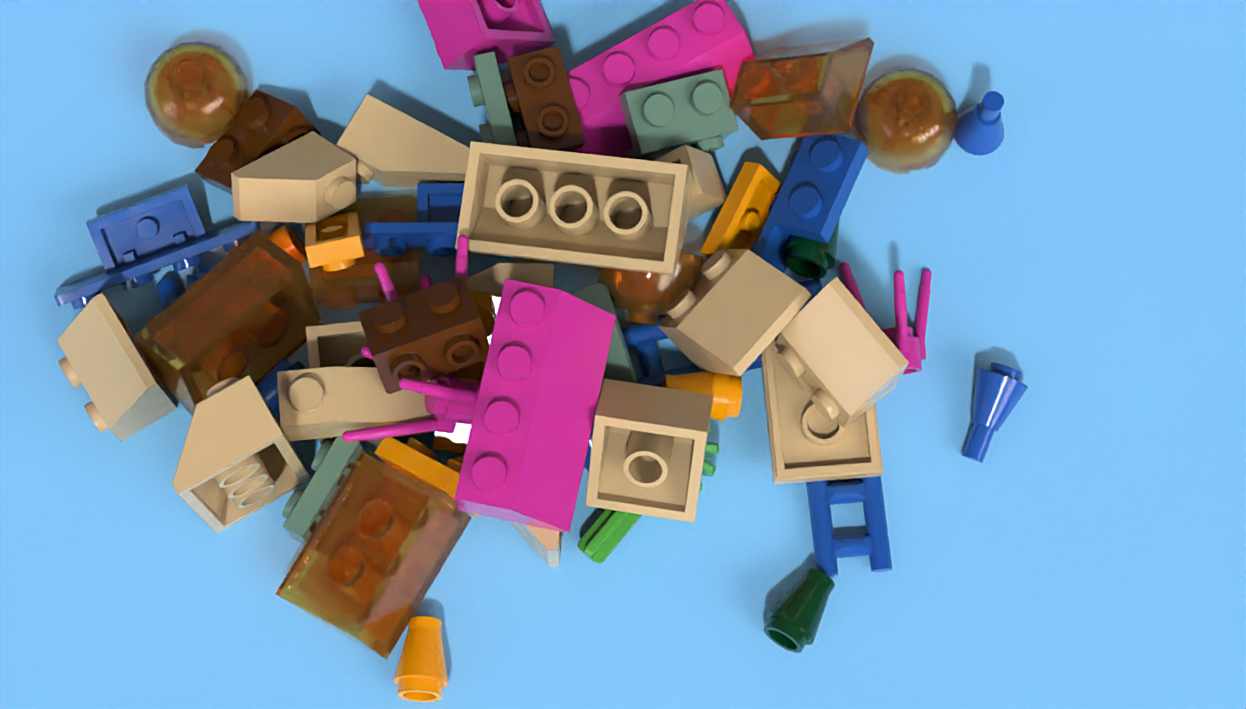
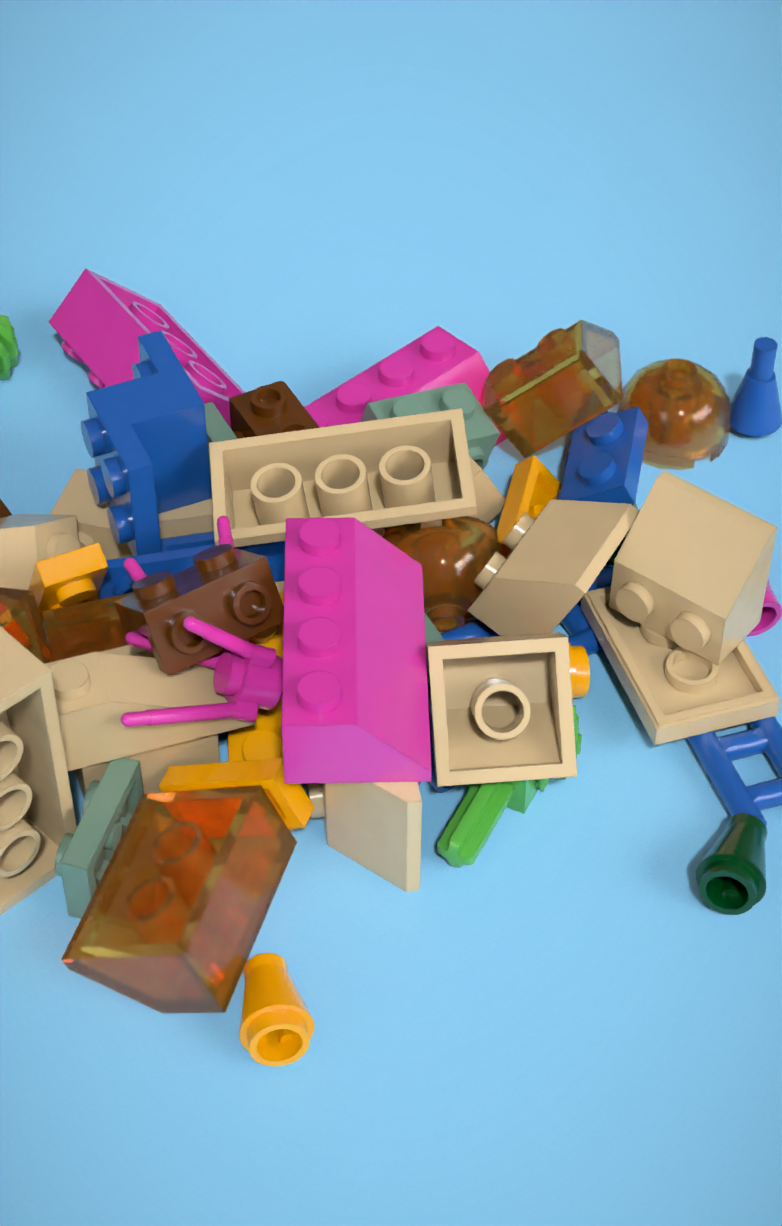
camera: 10 degrees left, 30 degrees down
(419, 119) = (147, 445): none -> blue bracket

